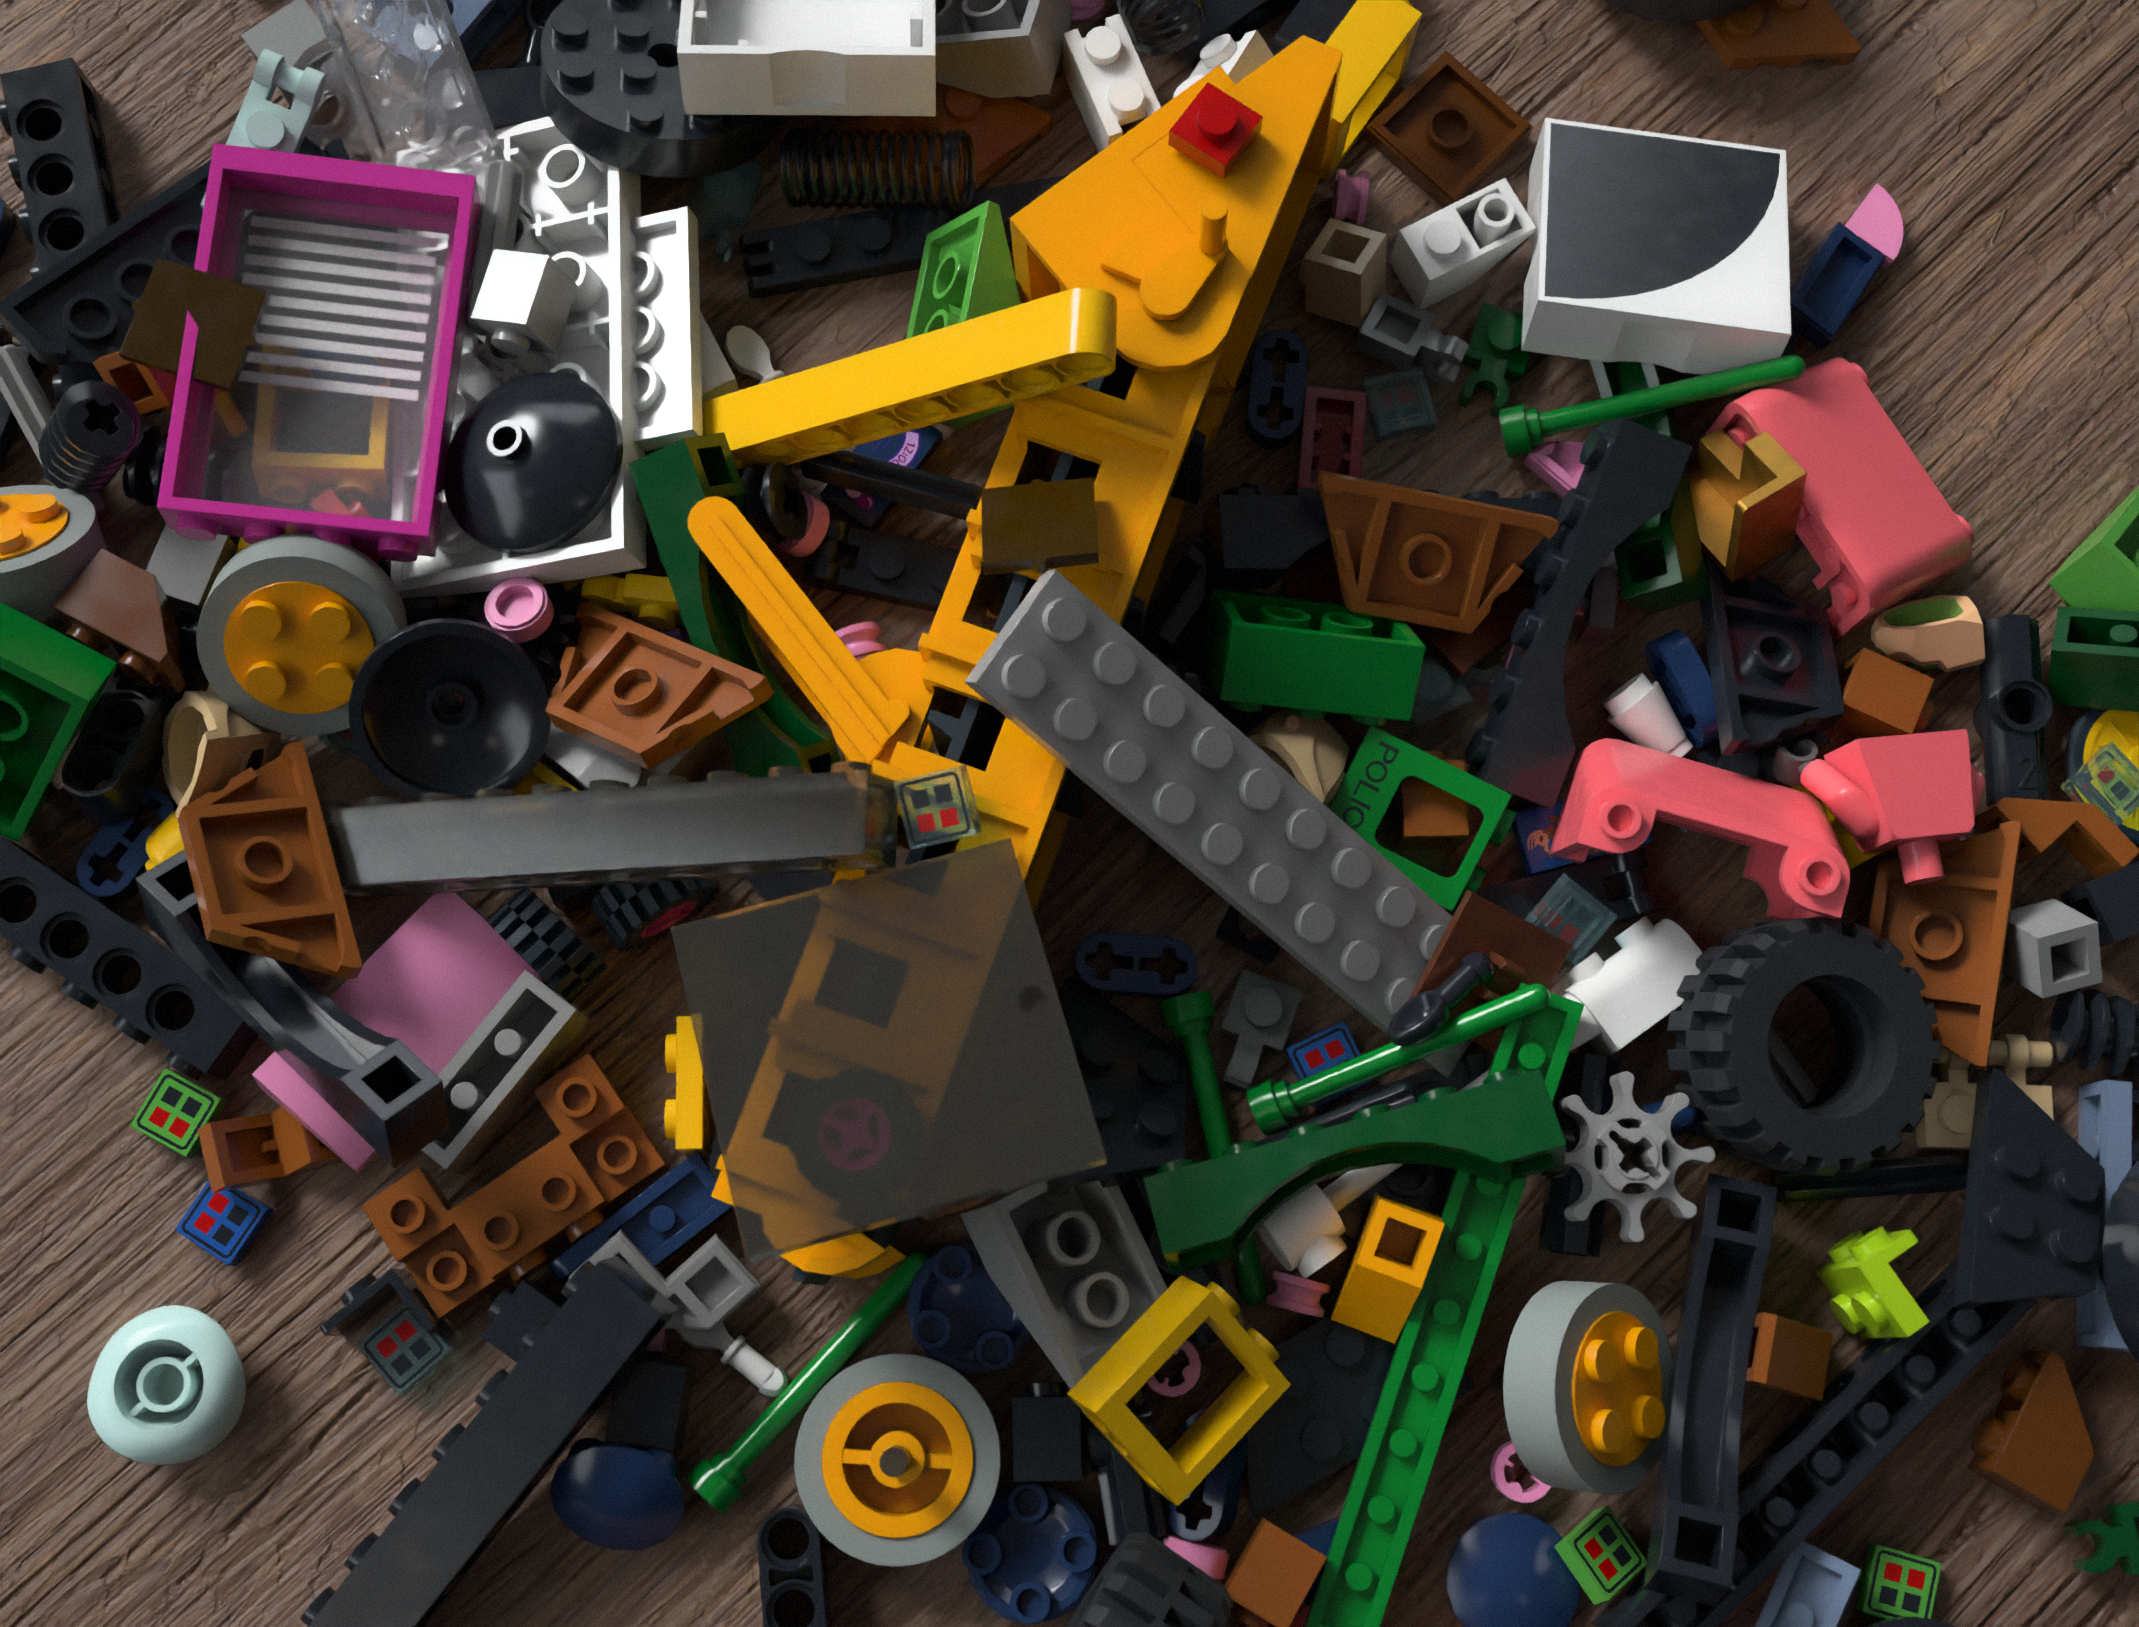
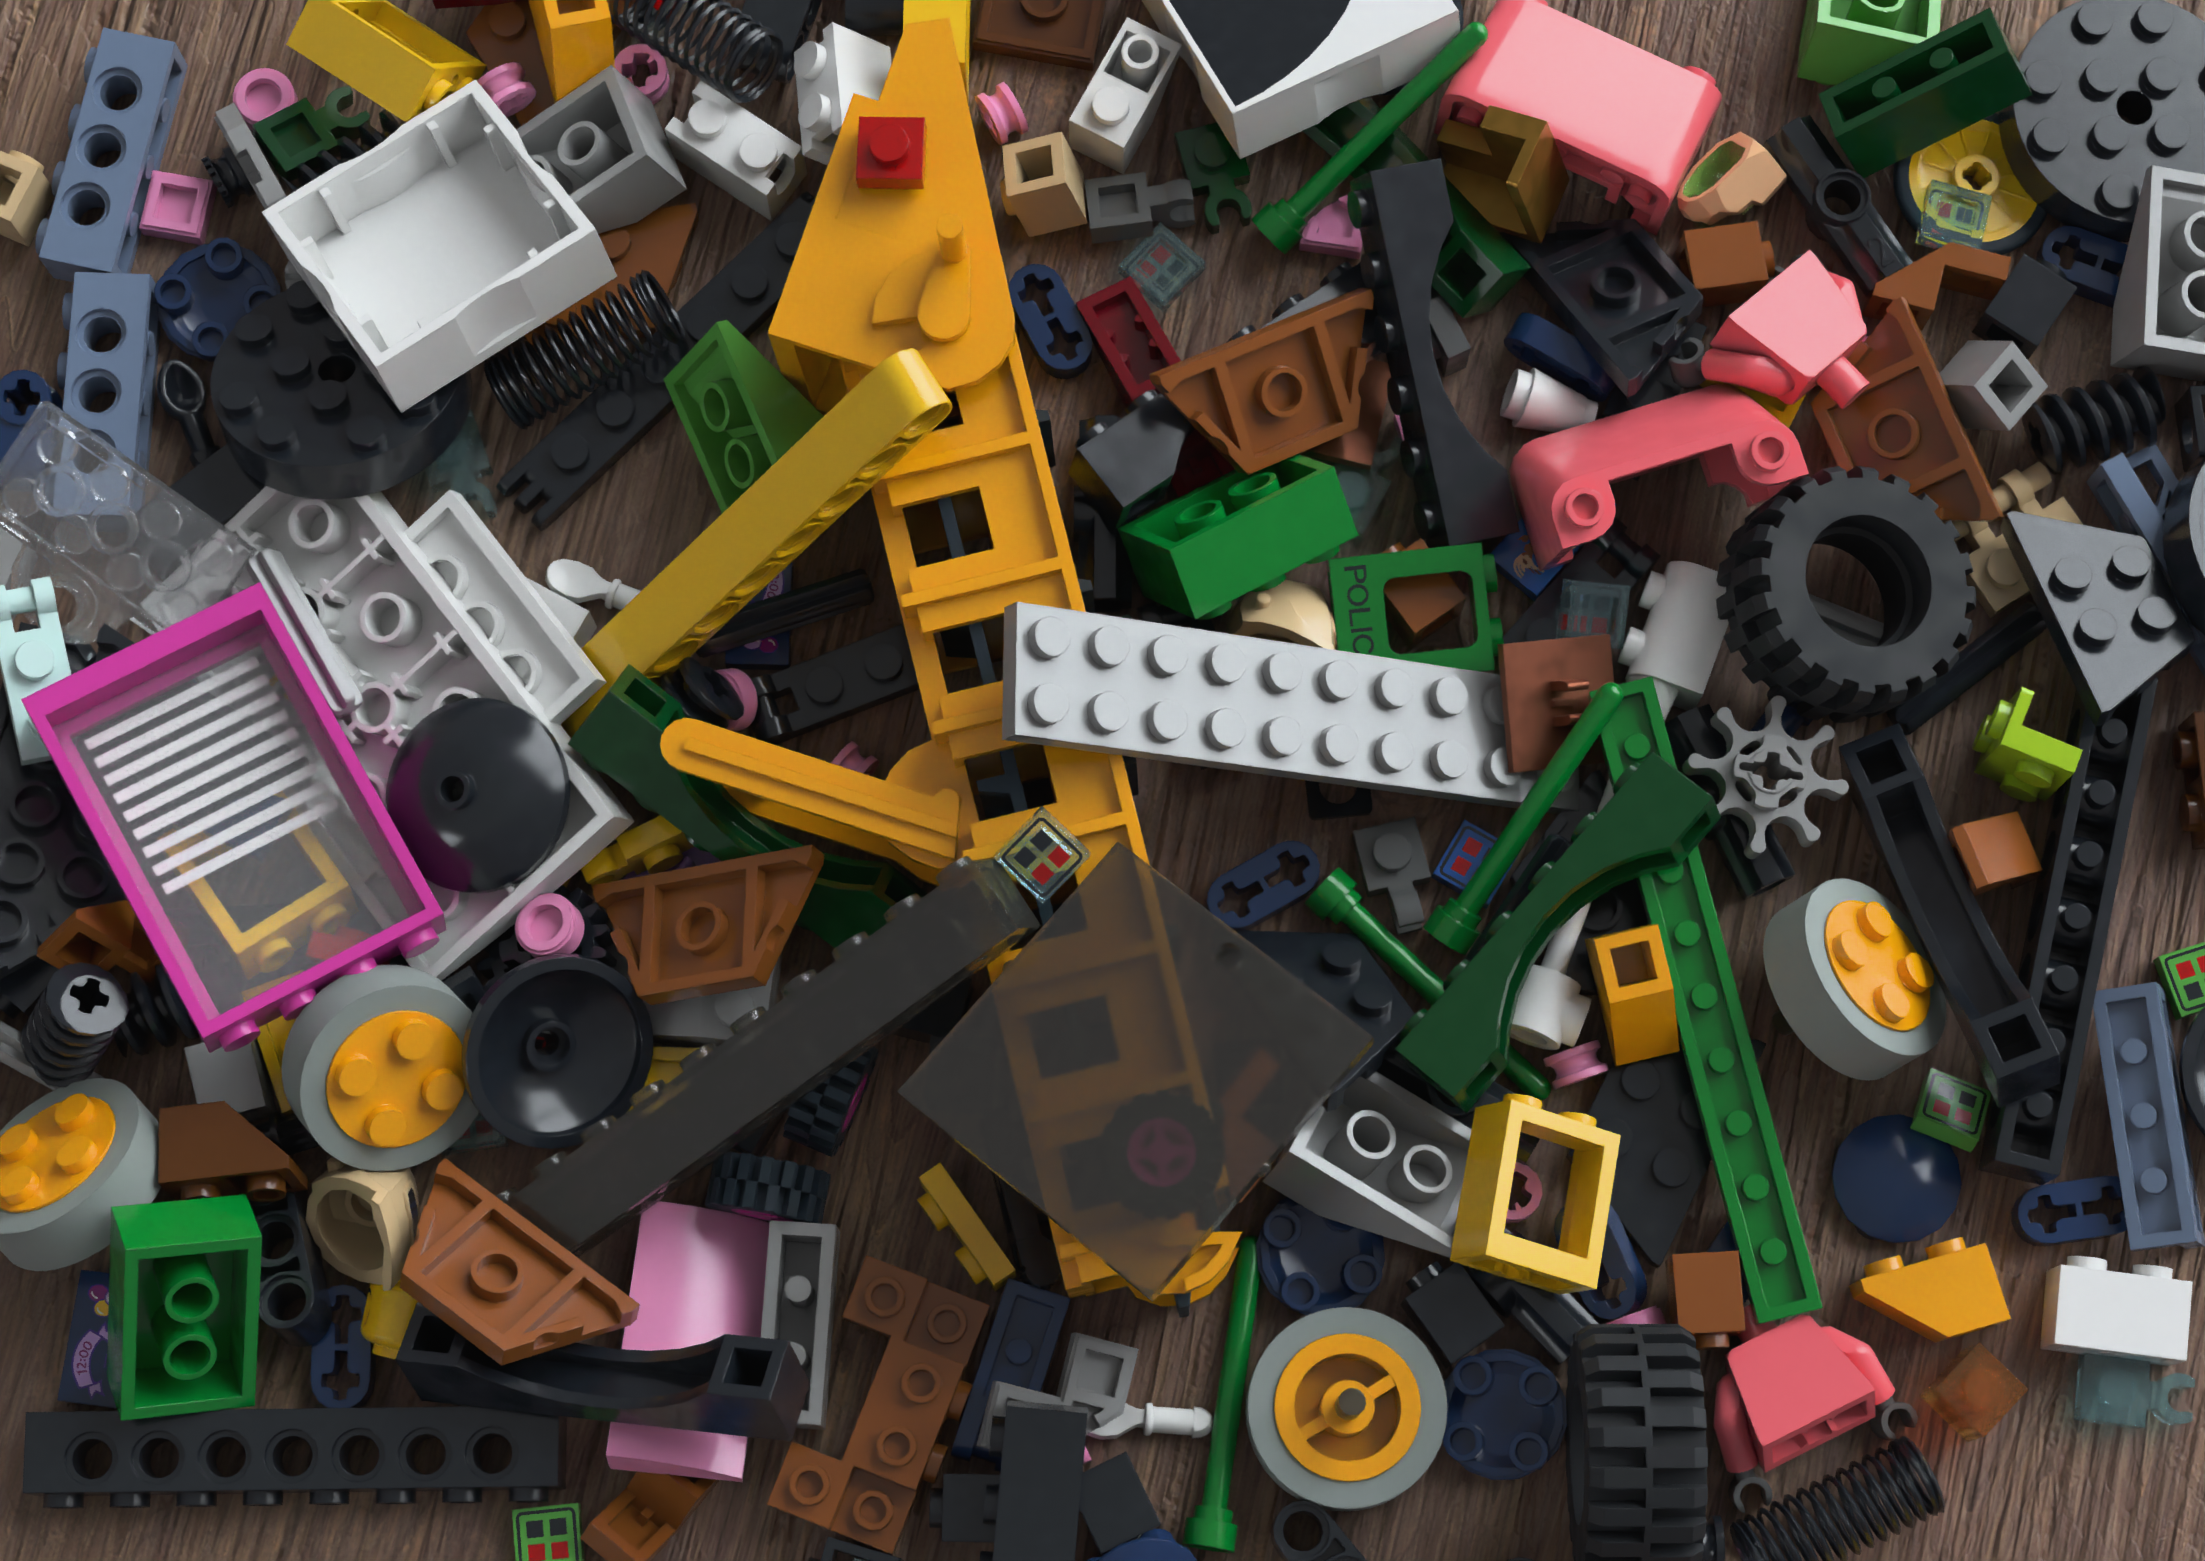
camera: 30 degrees left, 0 degrees up
(221, 308) = (130, 835): dark brown piece -> none
(524, 302) = (374, 664): light grey brick -> none
(1039, 526) = (971, 573): dark brown piece -> none
(1430, 1010) = (1532, 763): black piece -> none
(1510, 1487) = (1848, 1106): bright pink bush -> none

